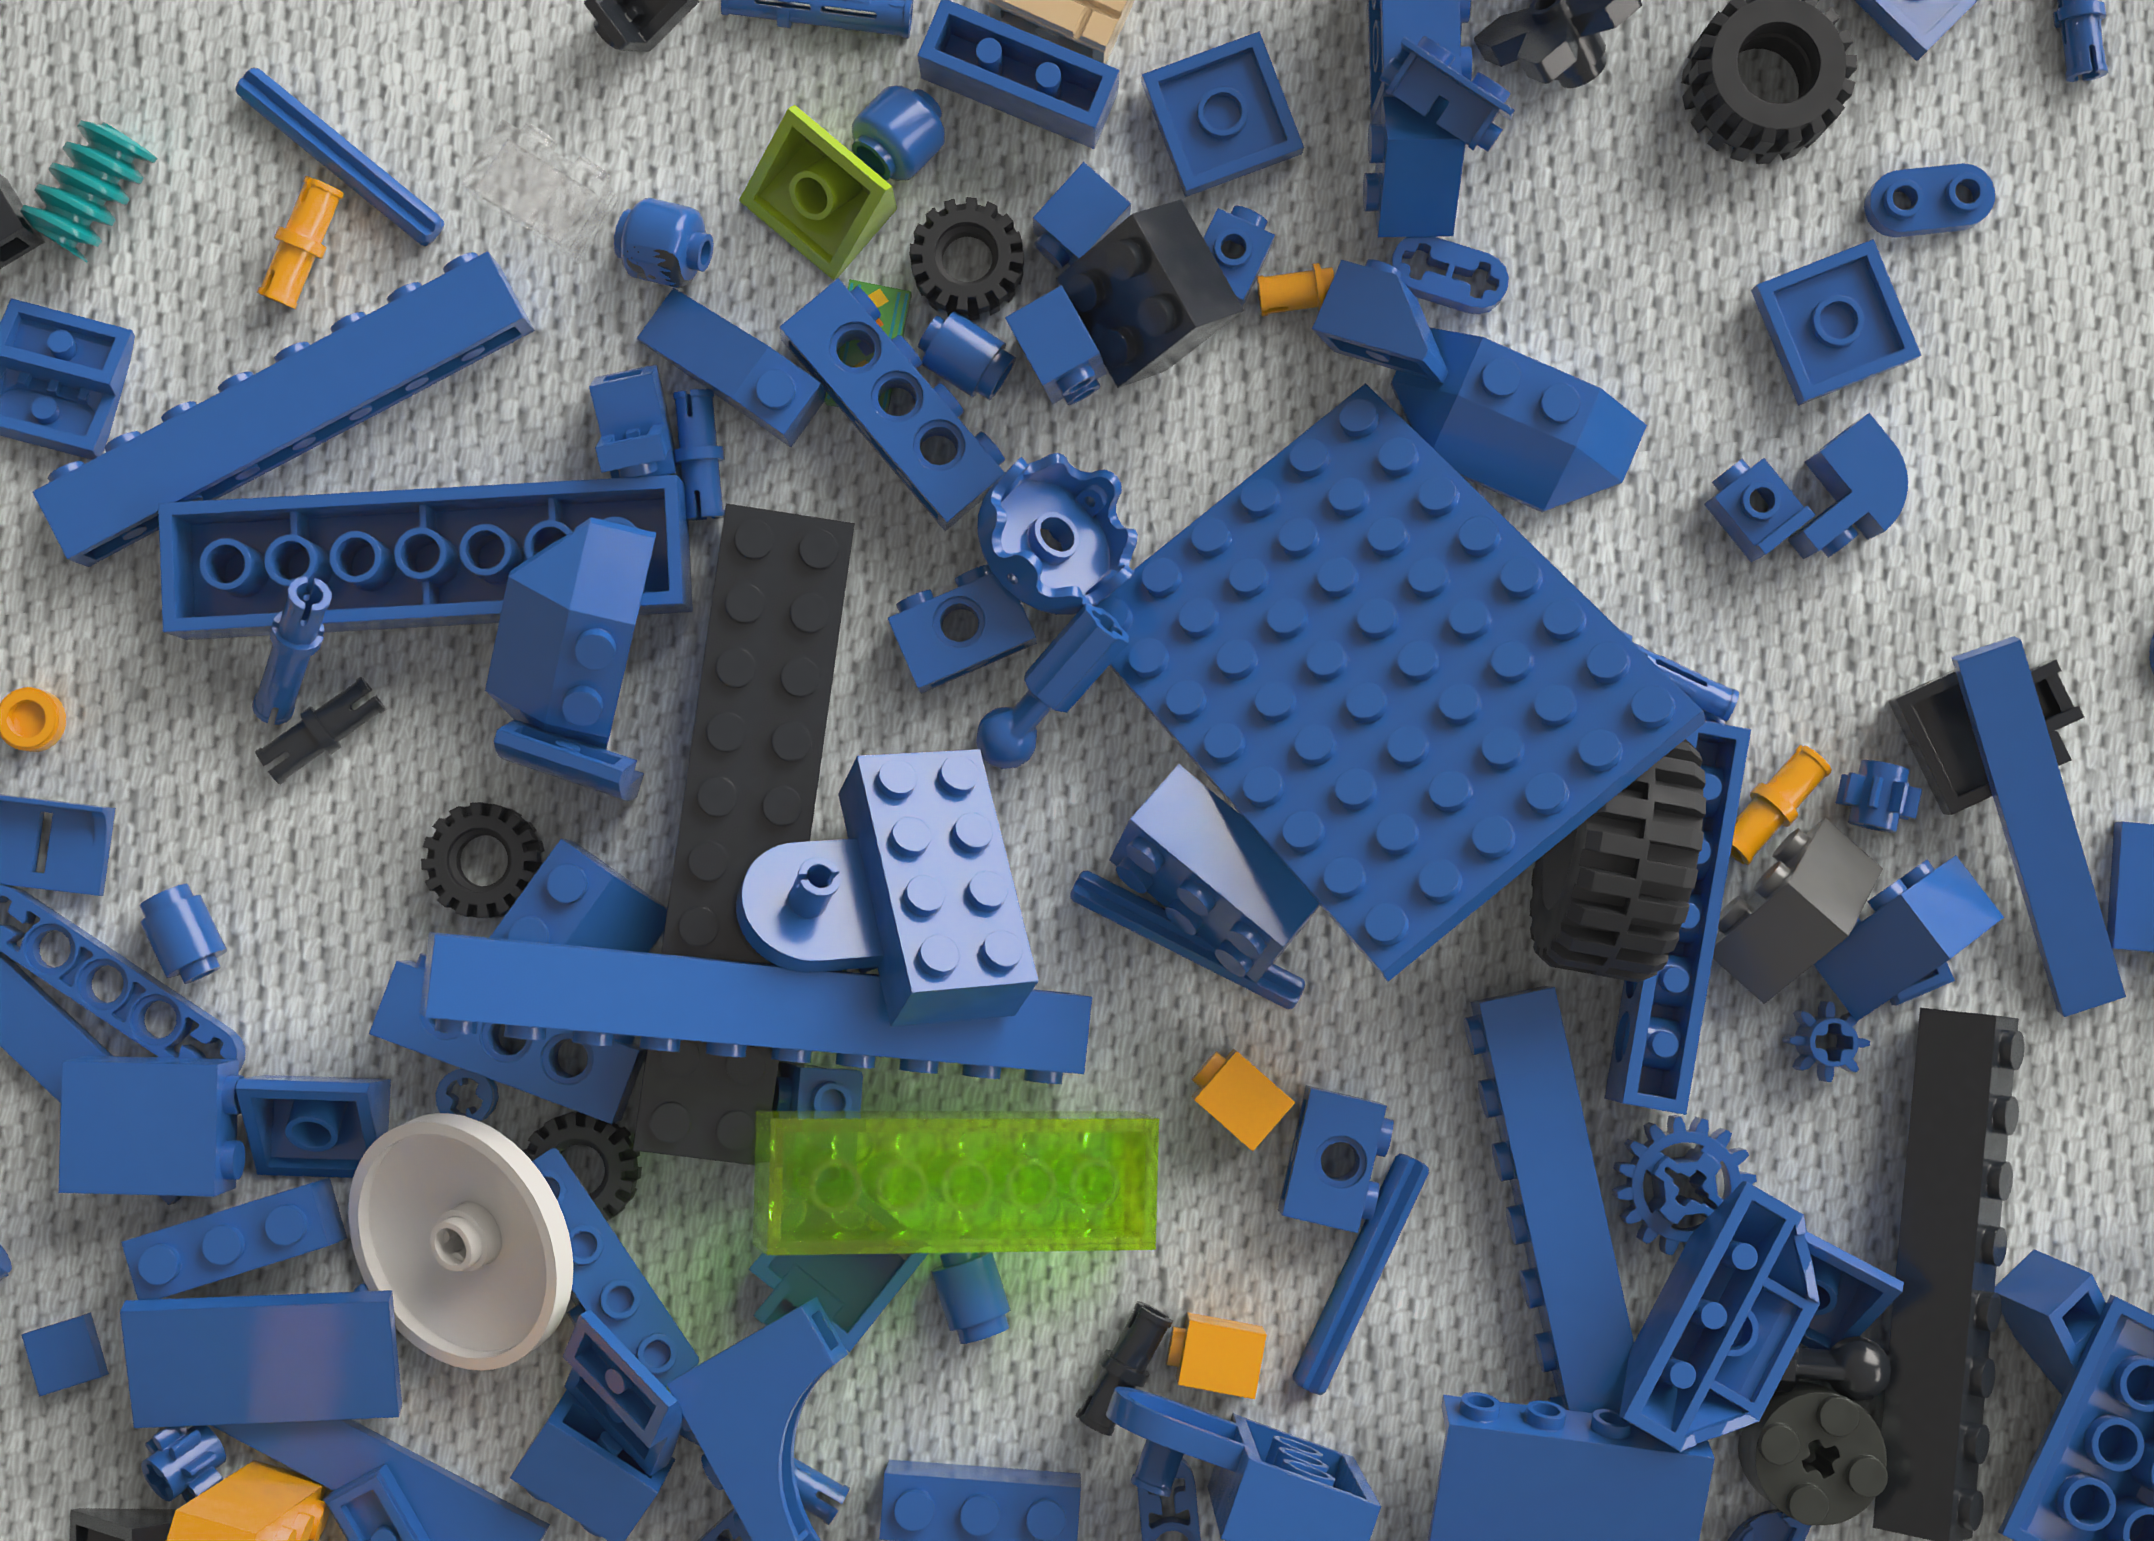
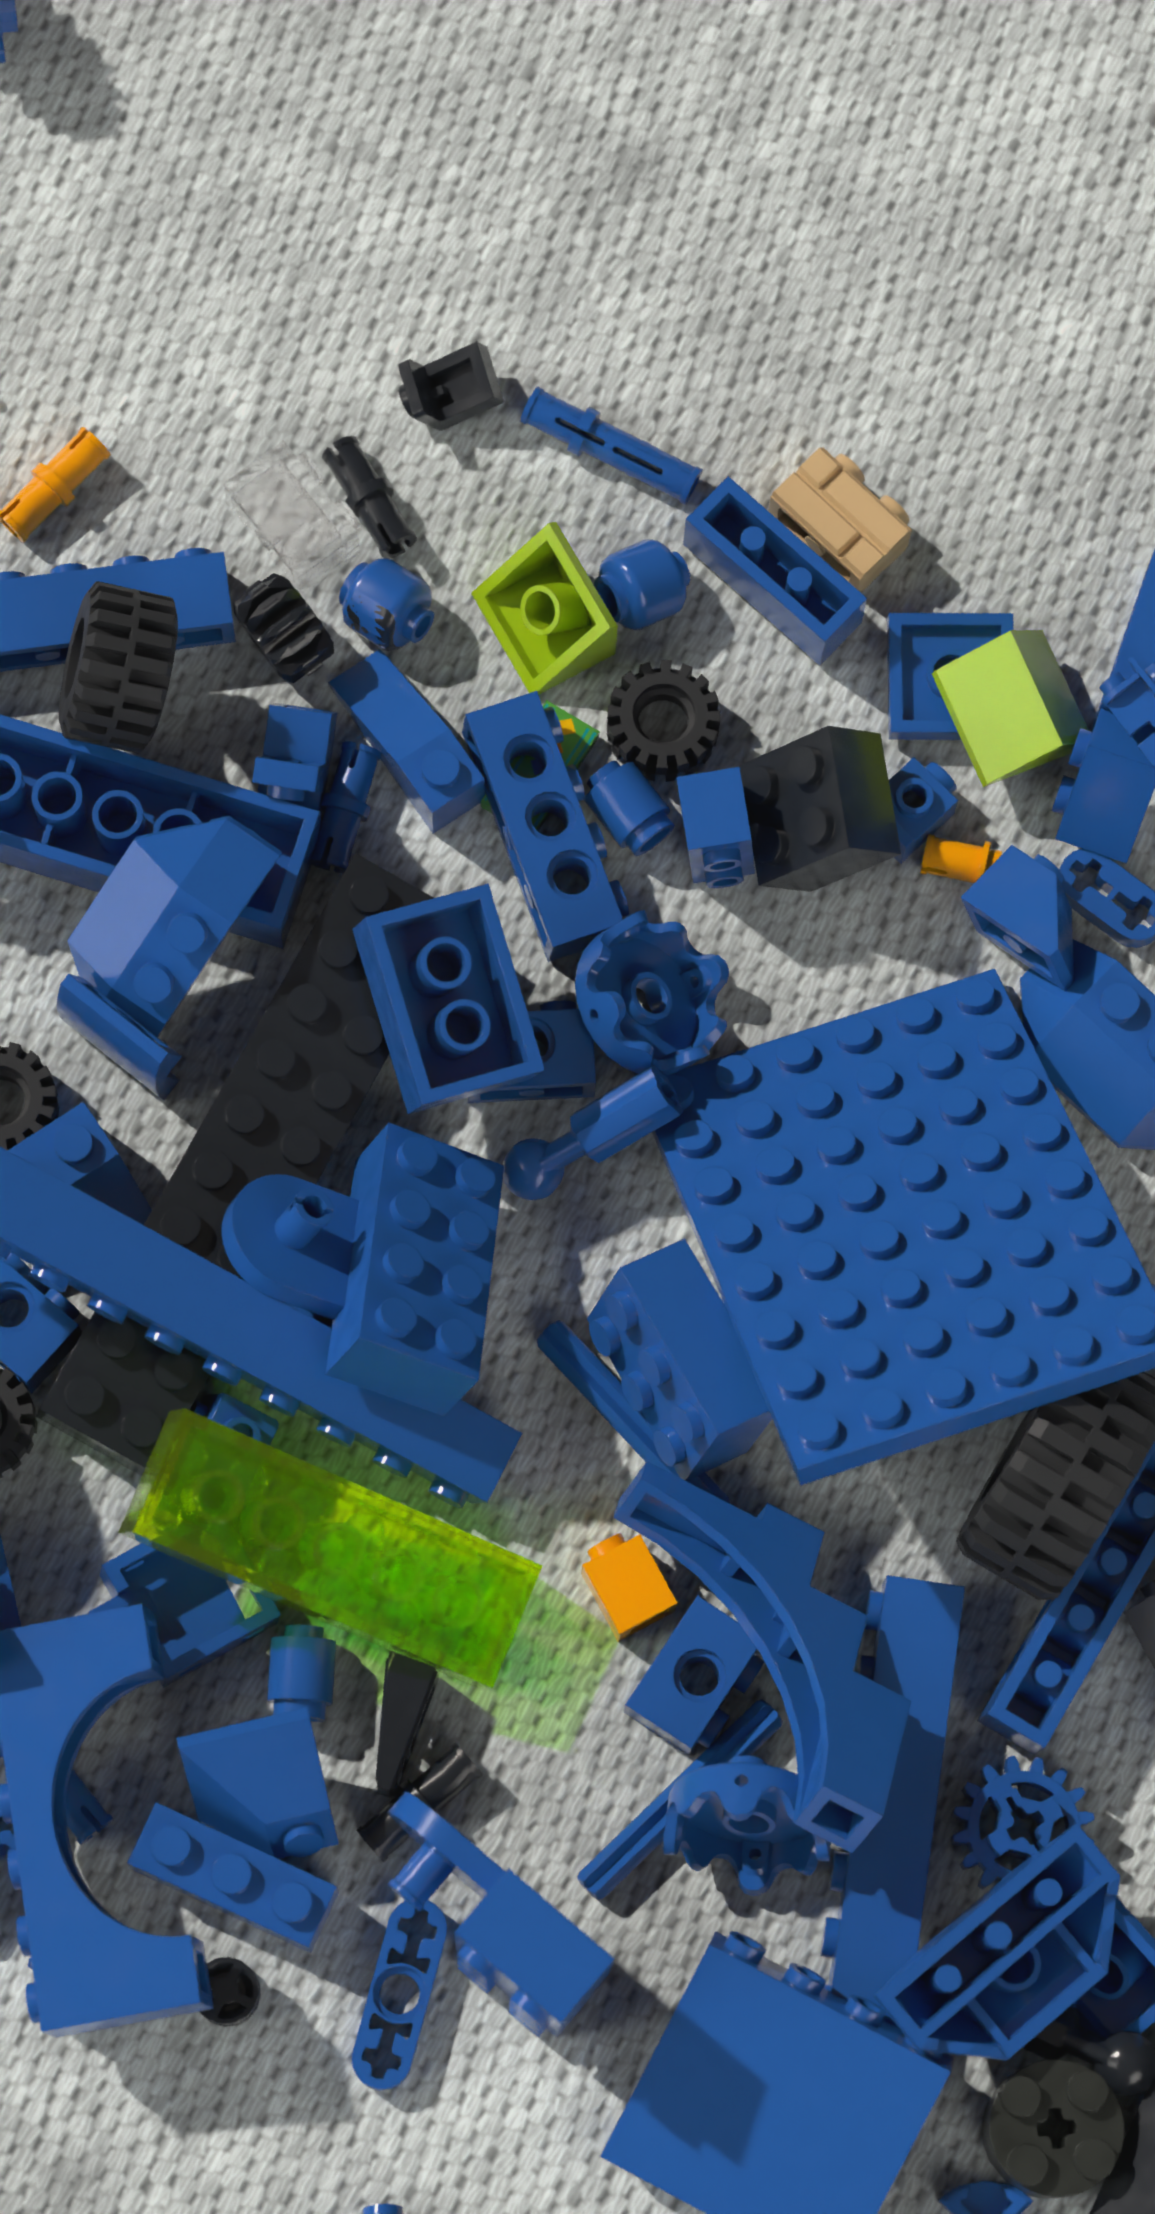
camera: 20 degrees right, 10 degrees down
(339, 156) = (119, 422): blue axle -> none
(428, 407) = (118, 667): none -> black tyre
(573, 304) = (283, 627): none -> black gear
(606, 142) = (369, 497): none -> black pin
(870, 618) = (448, 998): none -> blue brick
(980, 1416) = (262, 1784): none -> blue slope
(1077, 1293) = (405, 1702): none -> black slope
(1078, 217) = (778, 716): blue brick -> none
(1217, 1355) = (513, 1820): light orange brick -> none
(1291, 124) = (1010, 705): none -> lime slope
(1429, 1271) = (741, 1814): none -> blue plate
(1434, 1095) = (762, 1572): none -> blue arch

